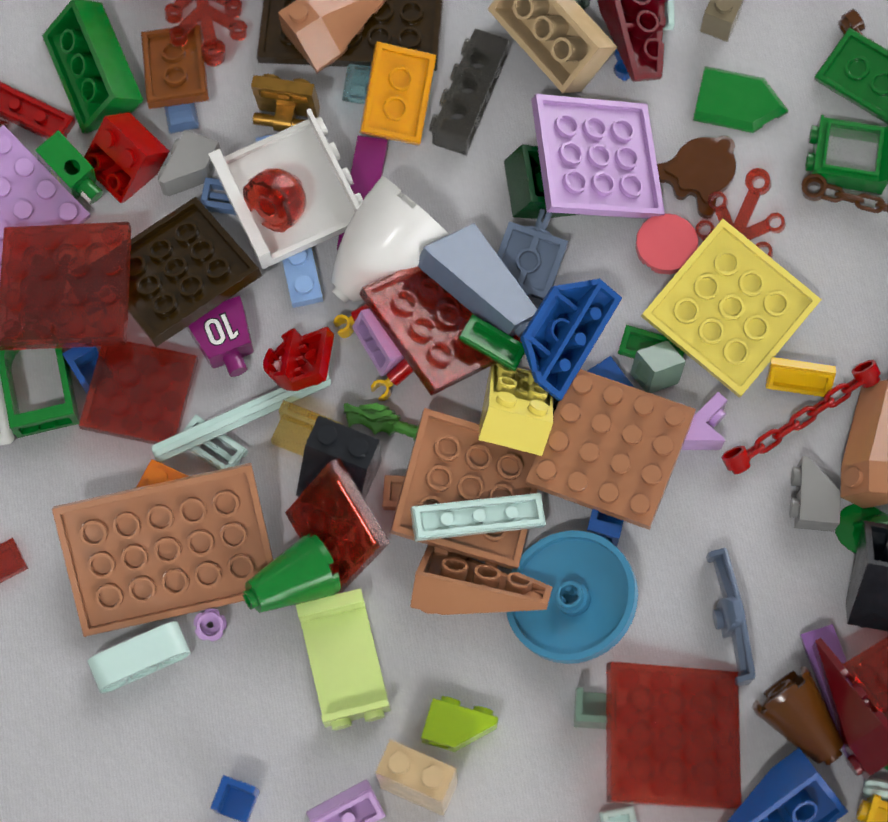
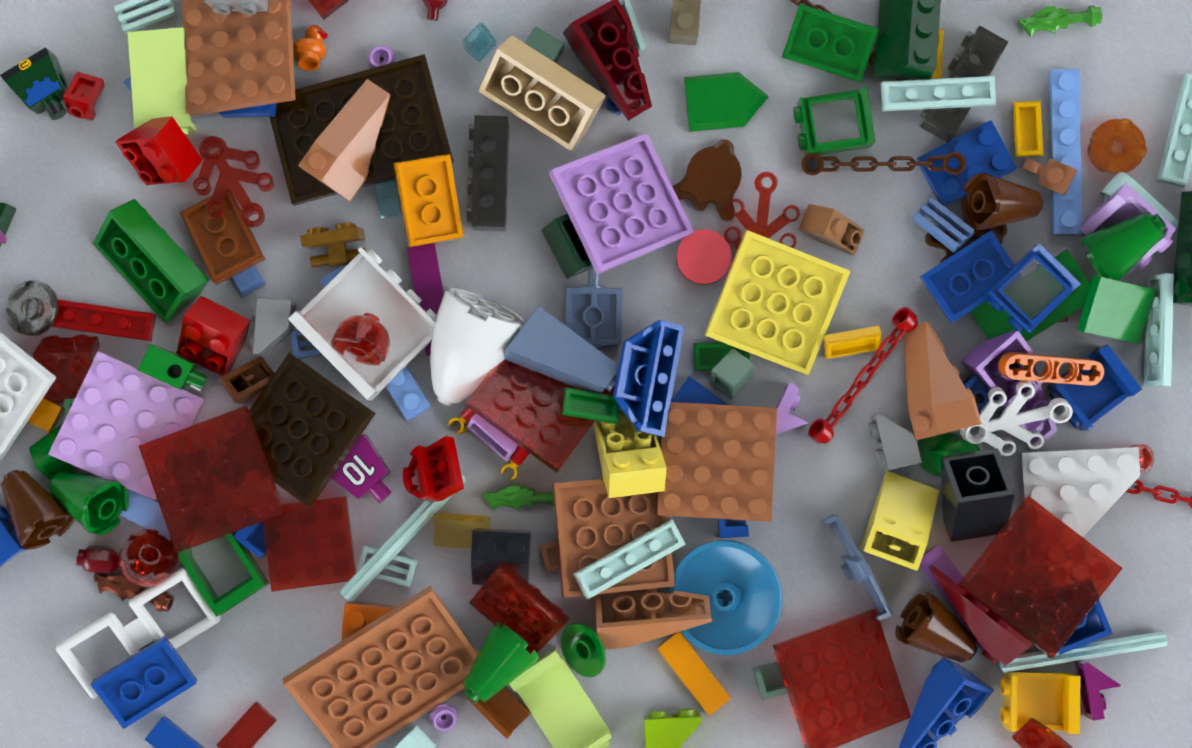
camera: 20 degrees left, 15 degrees up
(141, 207) = (247, 380): none -> reddish brown slope
(278, 636) = (503, 711): none -> dark orange panel
(391, 601) = (583, 650): none -> green dish
(506, 674) = (693, 673): none -> light orange tile
(794, 584) = (900, 521): none -> light yellow slope
(814, 256) = (831, 228): none -> medium nougat slope

